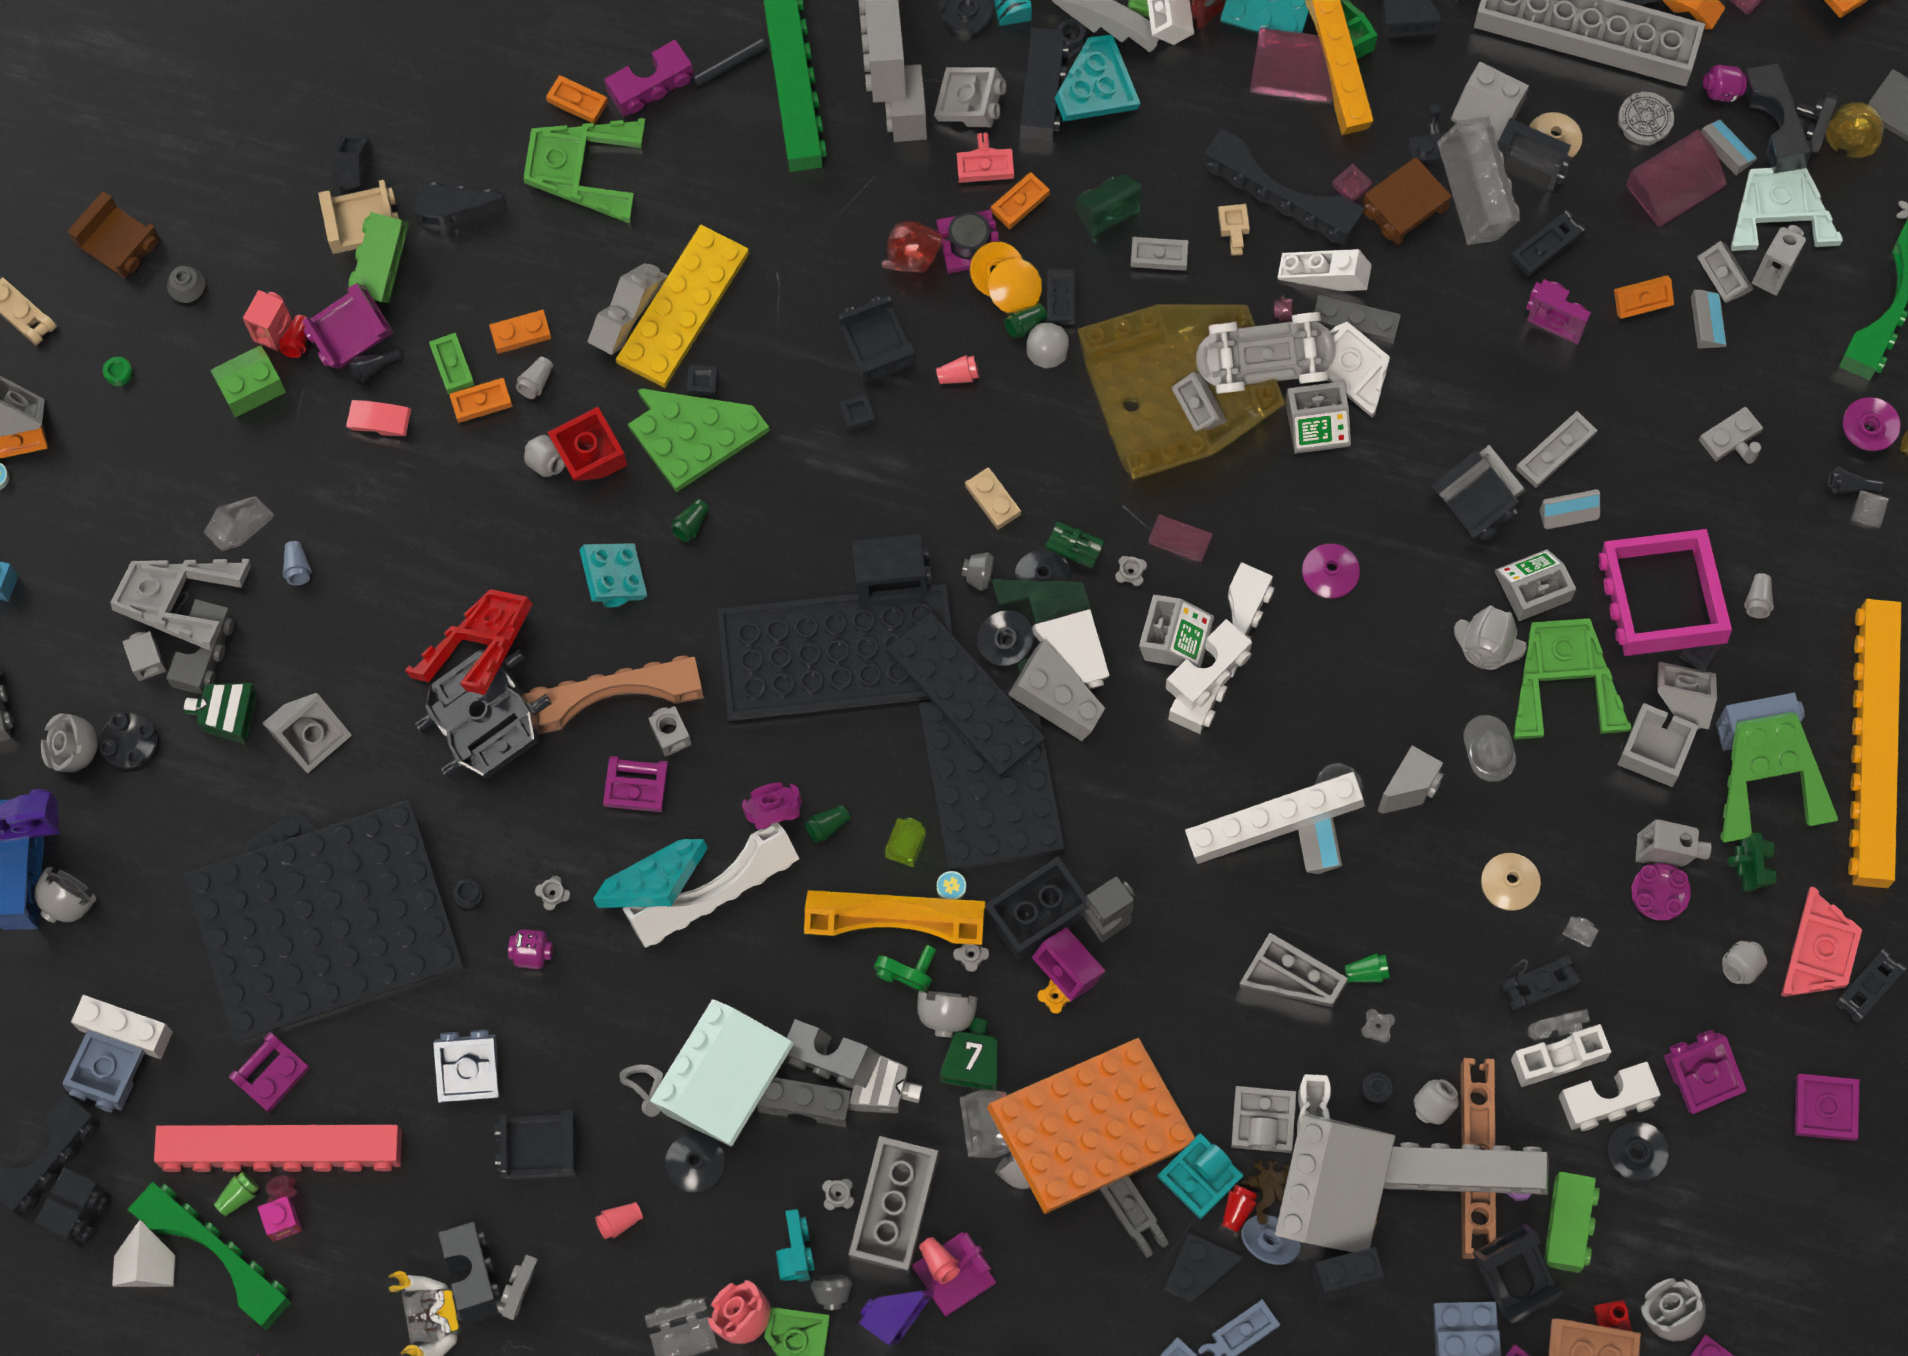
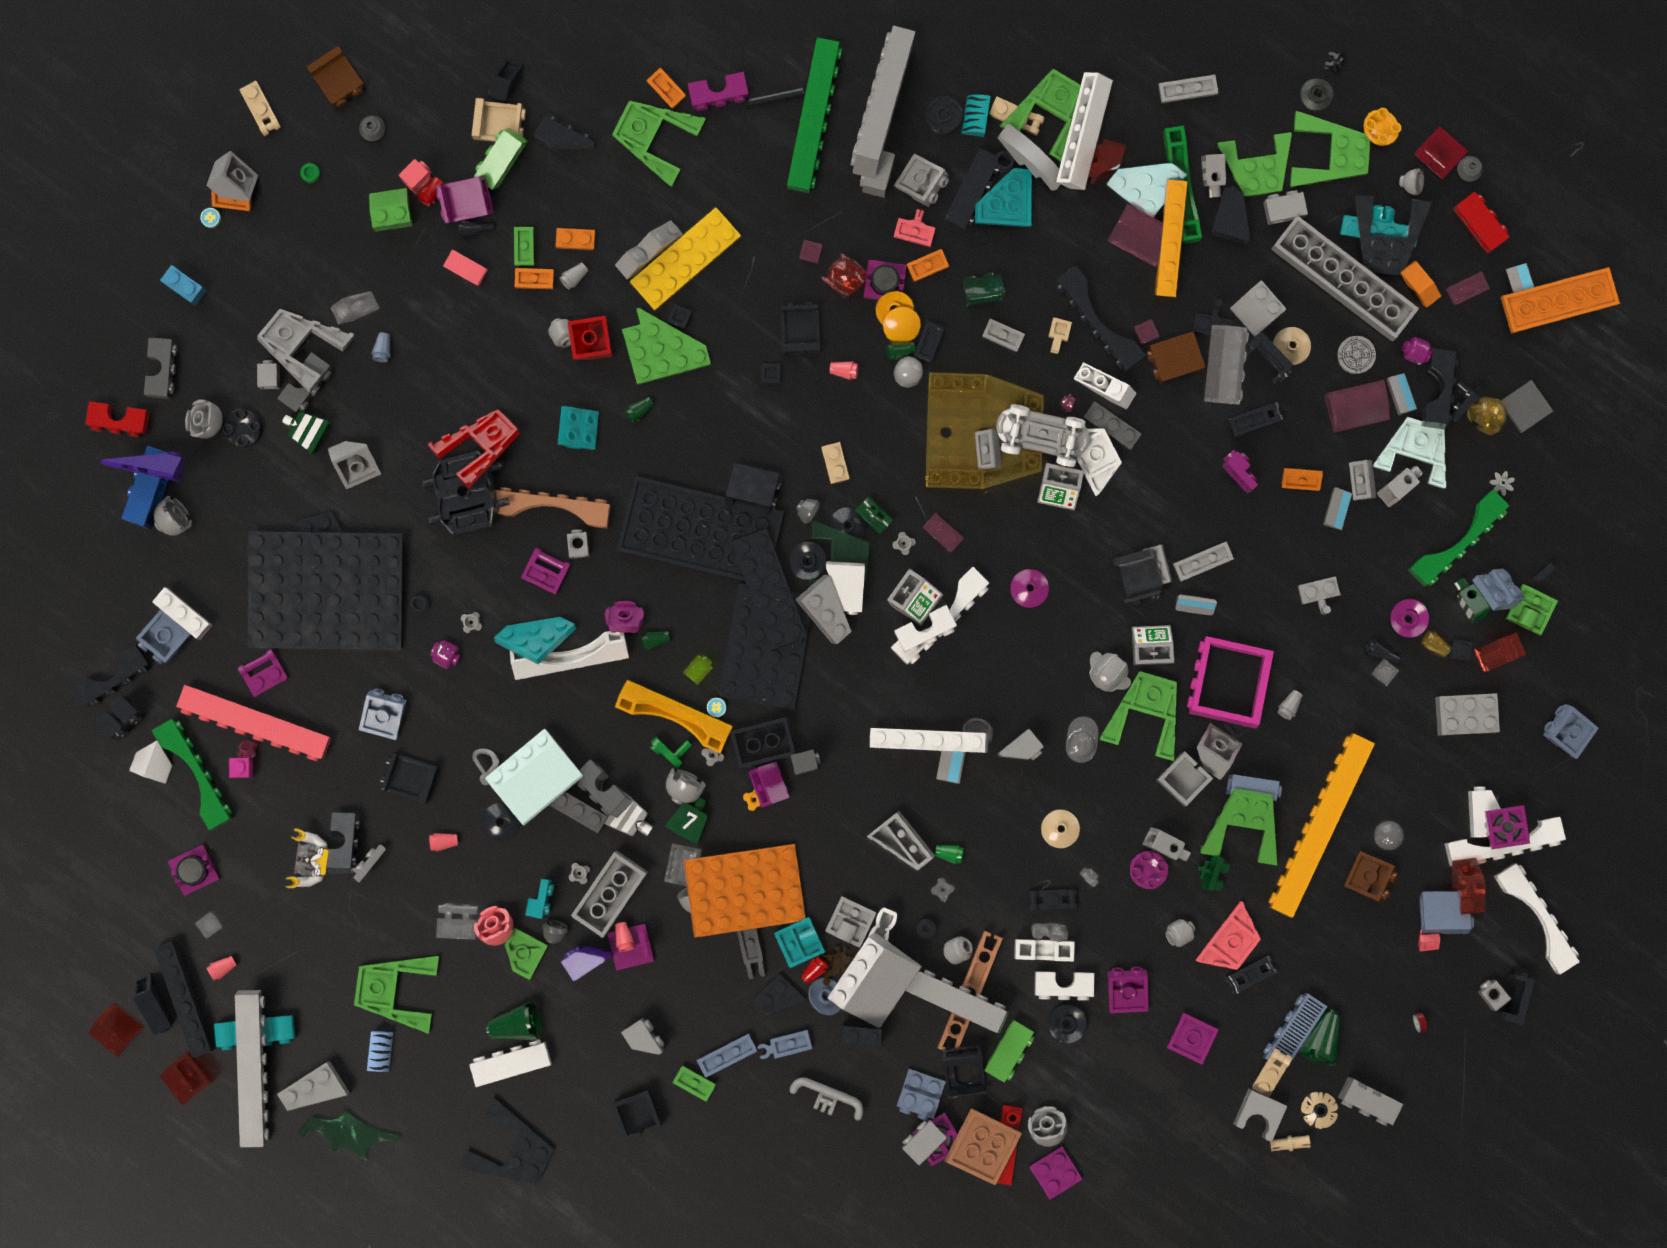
camera: 15 degrees right, 15 degrees up
(237, 1192) = (220, 742): bright green cone -> none
(853, 237) = (810, 251): none -> clear pink plate

